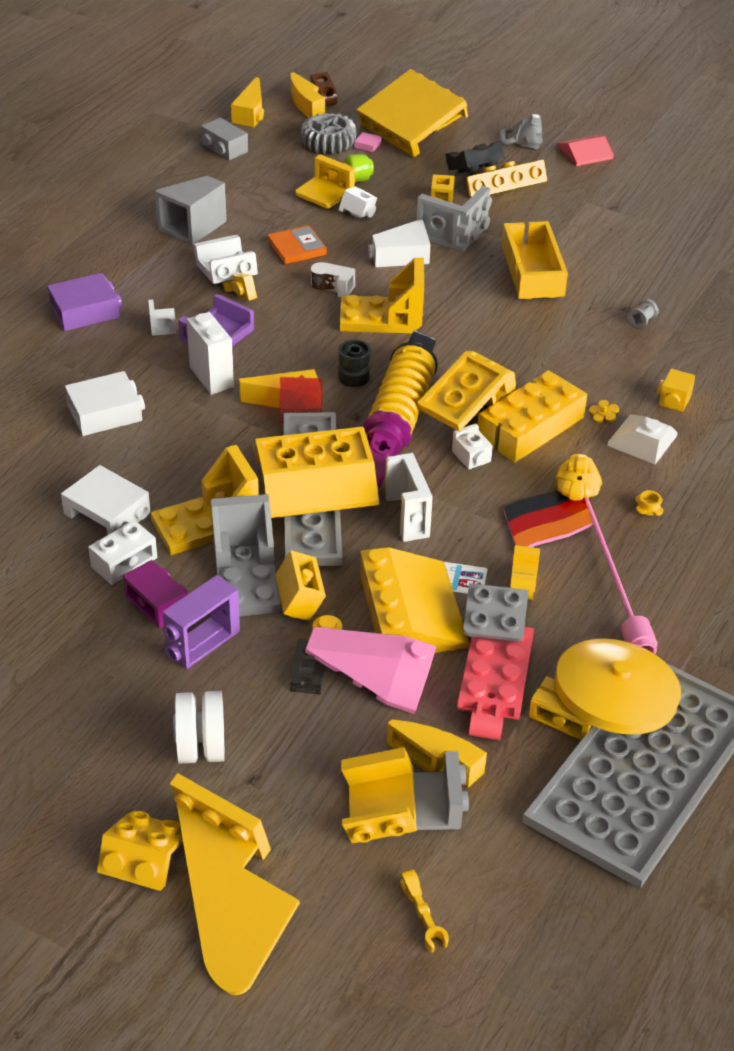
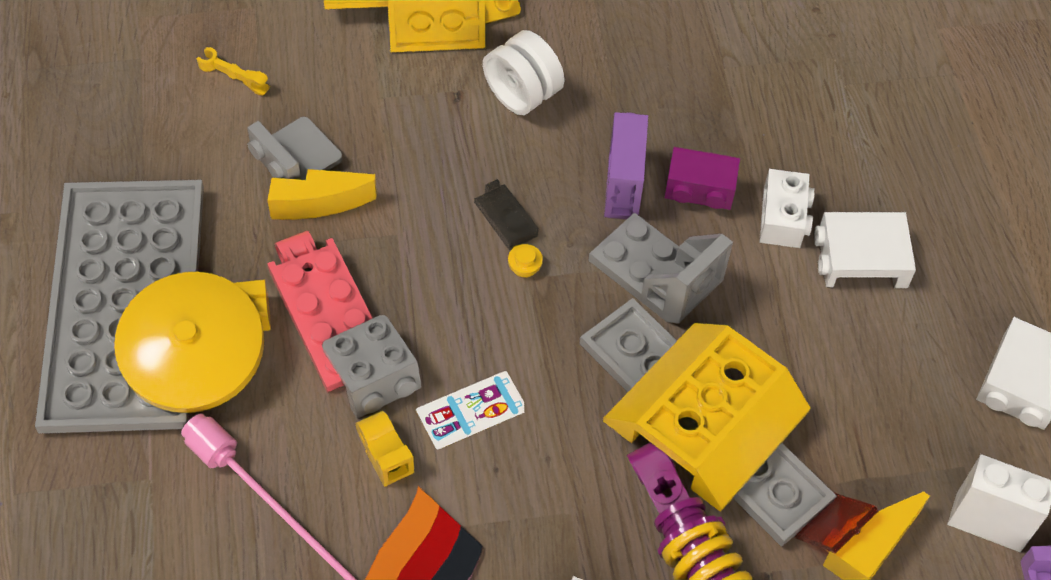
camera: 140 degrees right, 15 degrees up
(190, 522) = (764, 300): yellow bracket -> none
(300, 585) = (583, 267): yellow brick -> none
(379, 795) = (328, 121): yellow panel -> none
(383, 663) = (438, 240): bright pink wedge -> none
(406, 483) = (575, 453): white panel -> none
(411, 598) = (473, 335): yellow slope -> none

